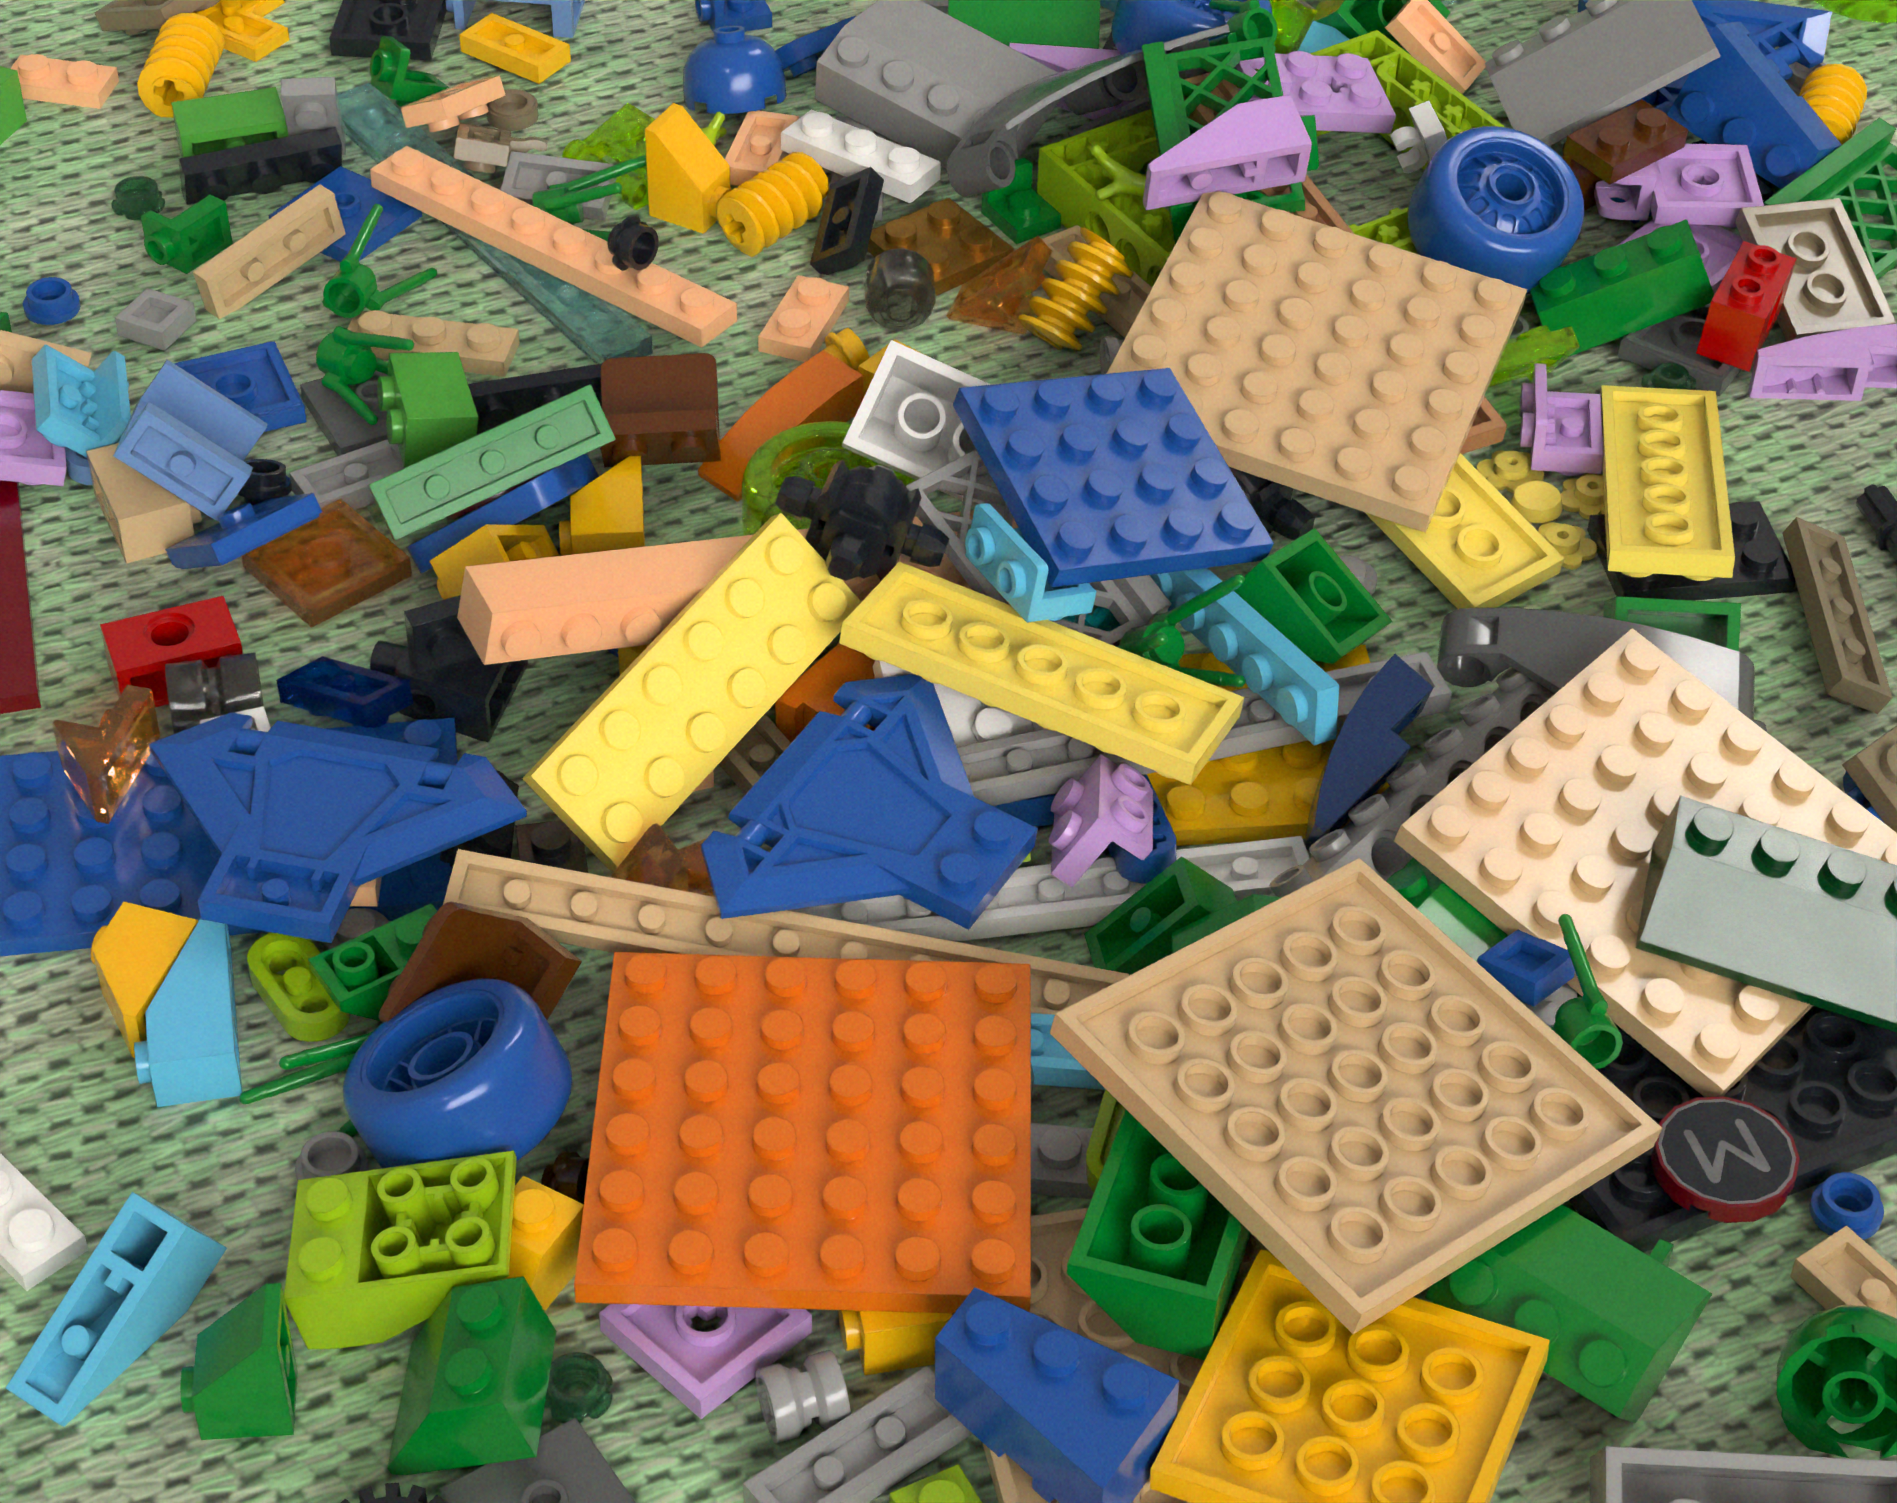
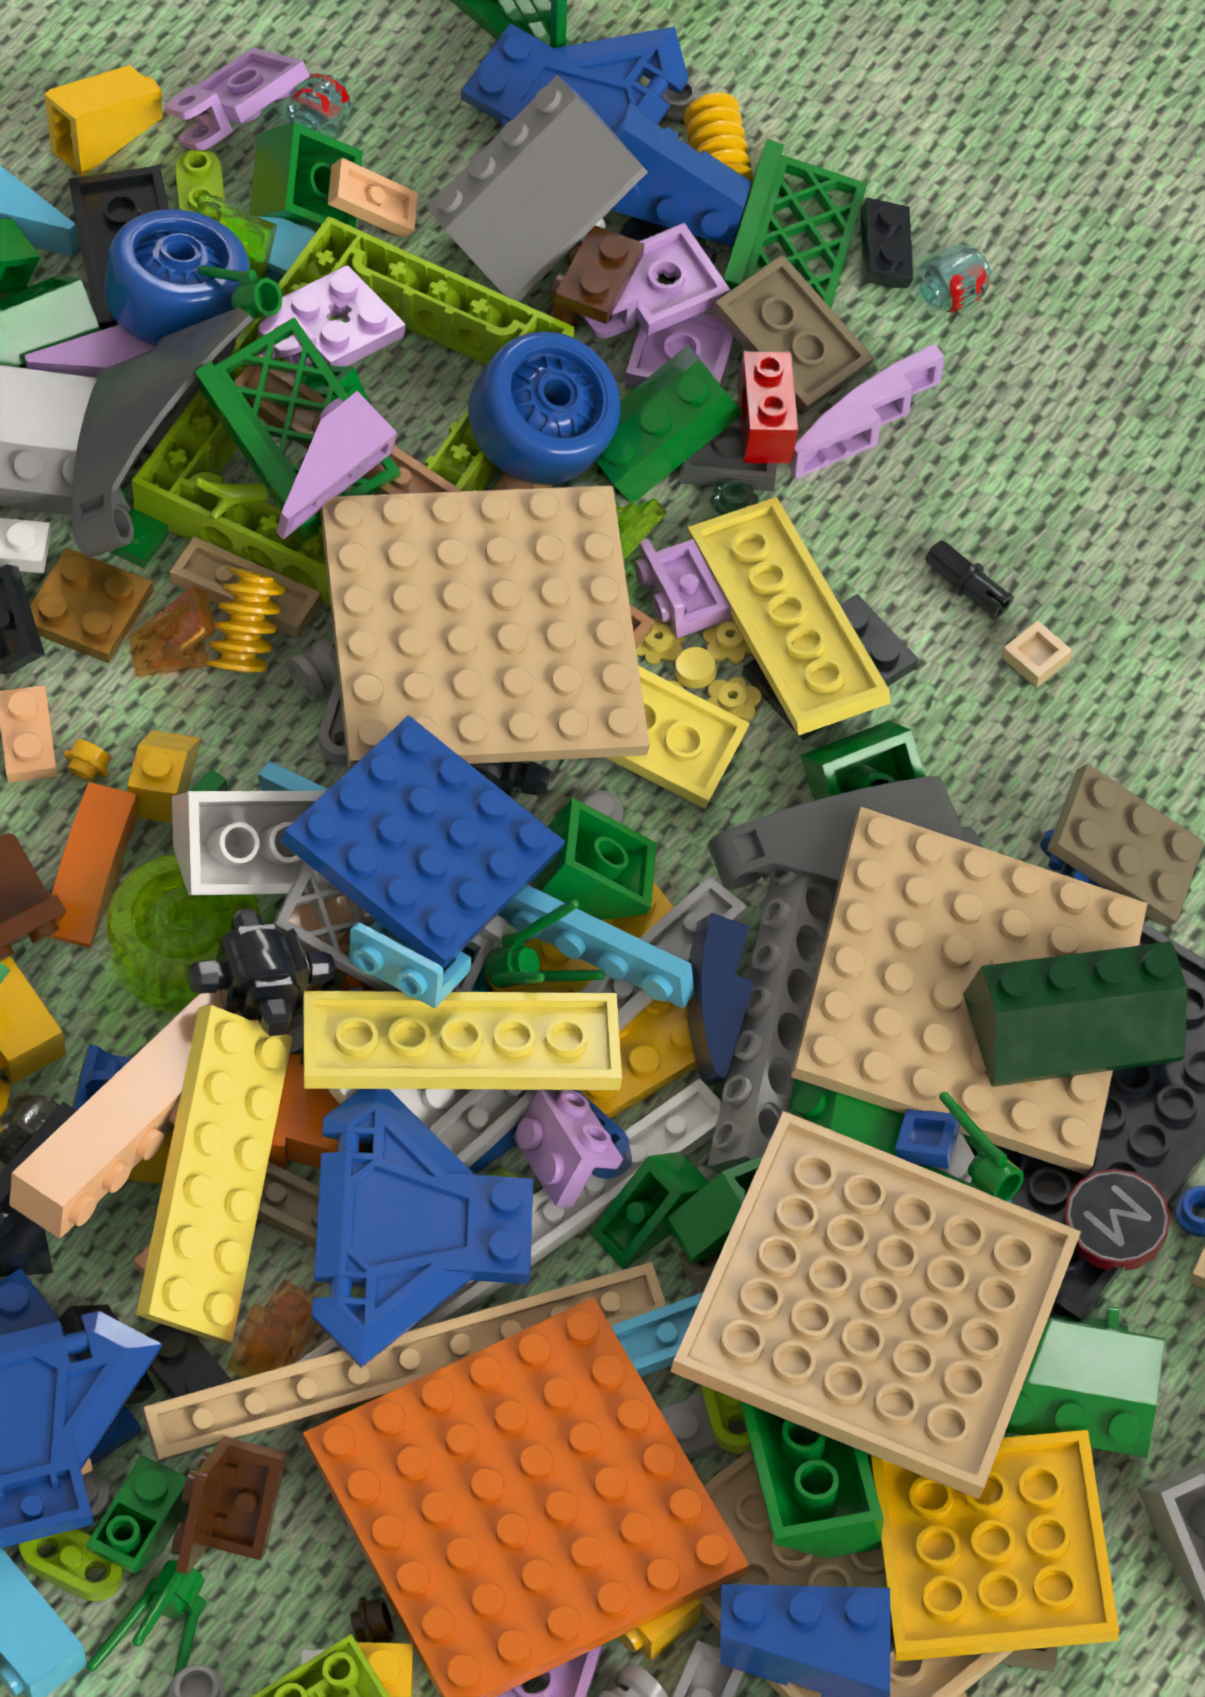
camera: 30 degrees left, 15 degrees up
(458, 1077) = (264, 1593): blue wheel -> none
(899, 289) = (93, 674): clear smoke head -> none
(1424, 138) = (446, 349): white tile -> none
(1836, 616) = (963, 685): dark tan plate -> none

